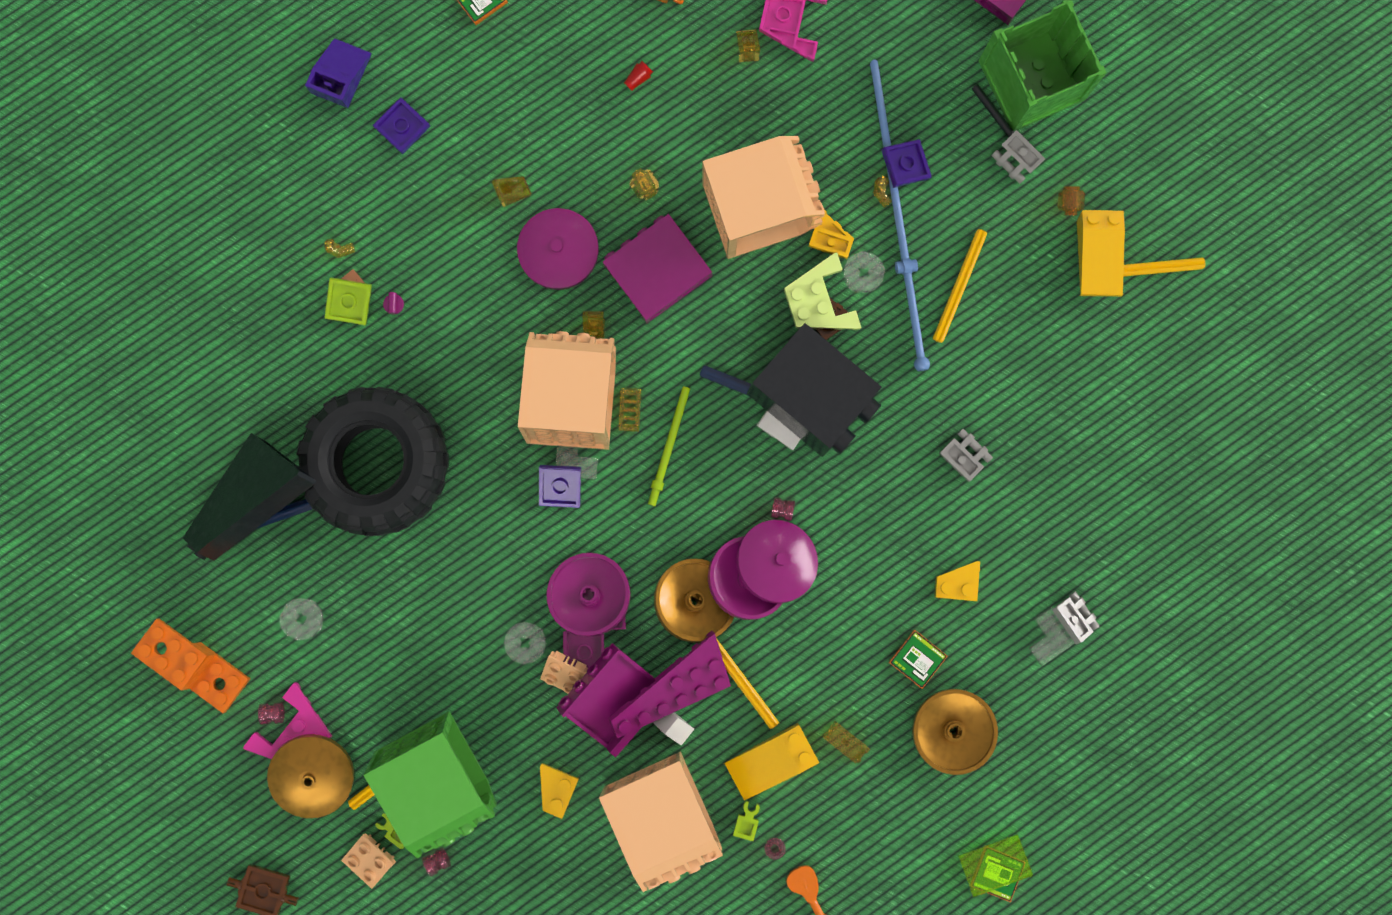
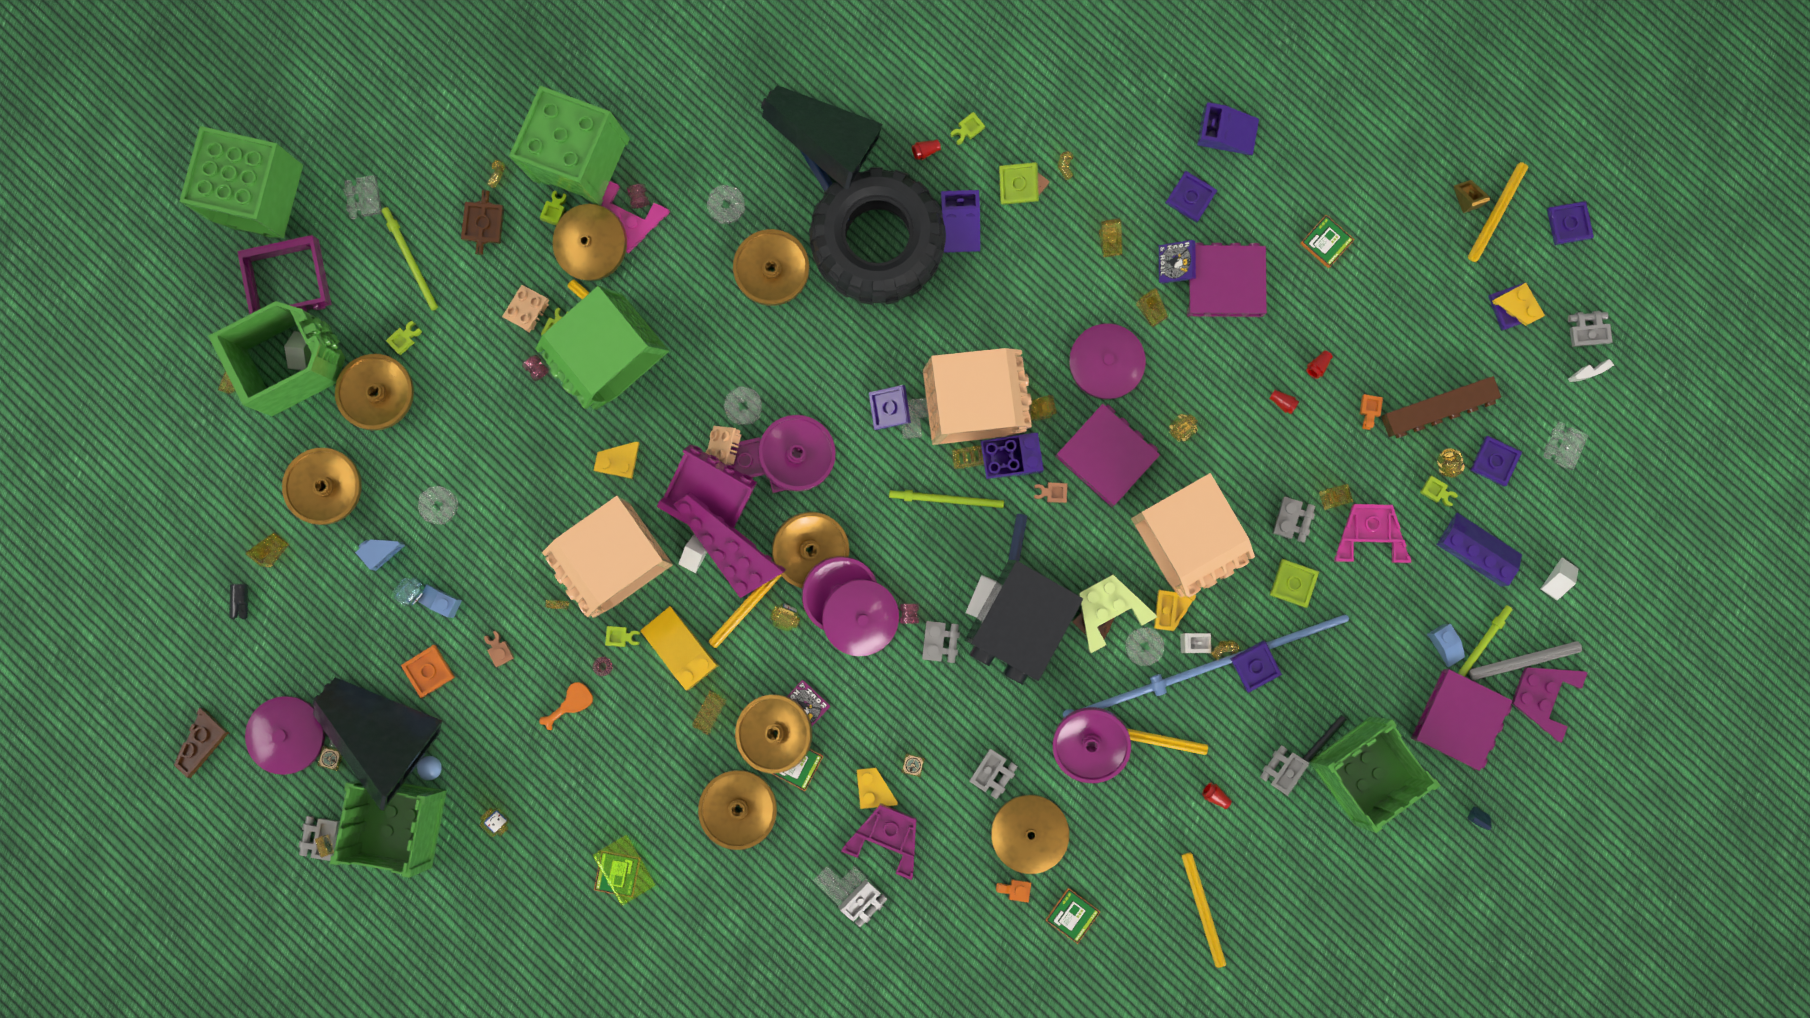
camera: 75 degrees right, 0 degrees up
(190, 665) = (666, 117): orange bracket -> none
(197, 778) = (569, 144): none -> bright green container
(213, 865) = (497, 174): none -> clear yellow arm
(267, 809) = (553, 210): none -> lime plate
(275, 341) = (969, 127): none -> lime plate
(288, 393) = (926, 148): none -> red cone
(362, 587) = (768, 250): none -> pearl gold dish
(374, 369) = (961, 220): none -> dark purple slope
(393, 303) = (1025, 224): magenta plate -> none
(427, 217) = (1111, 237): none -> clear yellow slope
(468, 153) = (1177, 261): none -> tile
(498, 106) = (1228, 281): none -> magenta panel
(607, 32) = (1319, 365): none -> red cone
(638, 367) = (1012, 456): none -> dark purple slope
(685, 332) = (1054, 492): none -> nougat plate
(699, 885) = (557, 604): none -> clear yellow tile
(759, 98) = (1288, 517): none -> light grey plate
(760, 642) = (784, 617): none -> clear yellow head
(815, 488) = (934, 641): none -> light grey plate
(828, 106) = (1294, 583): none -> lime tile
(859, 640) = (810, 701): none -> tile
(870, 220) = (1195, 642): none -> white slope
(886, 695) = (757, 738): none -> pearl gold dish
(941, 537) = (913, 765): none -> tile
(956, 347) = (1091, 745): none -> magenta dish
(1005, 574) = (890, 830): none -> magenta wing
(1016, 434) = (1028, 815): none -> pearl gold dish
(1030, 232) = (1215, 795): none -> red cone
(1071, 200) = (1254, 828): clear orange head -> none
(1090, 455) = (1017, 891): none -> orange plate
(1101, 252) = (1209, 865): yellow slope -> none
(1126, 403) = (1072, 915): none -> tile

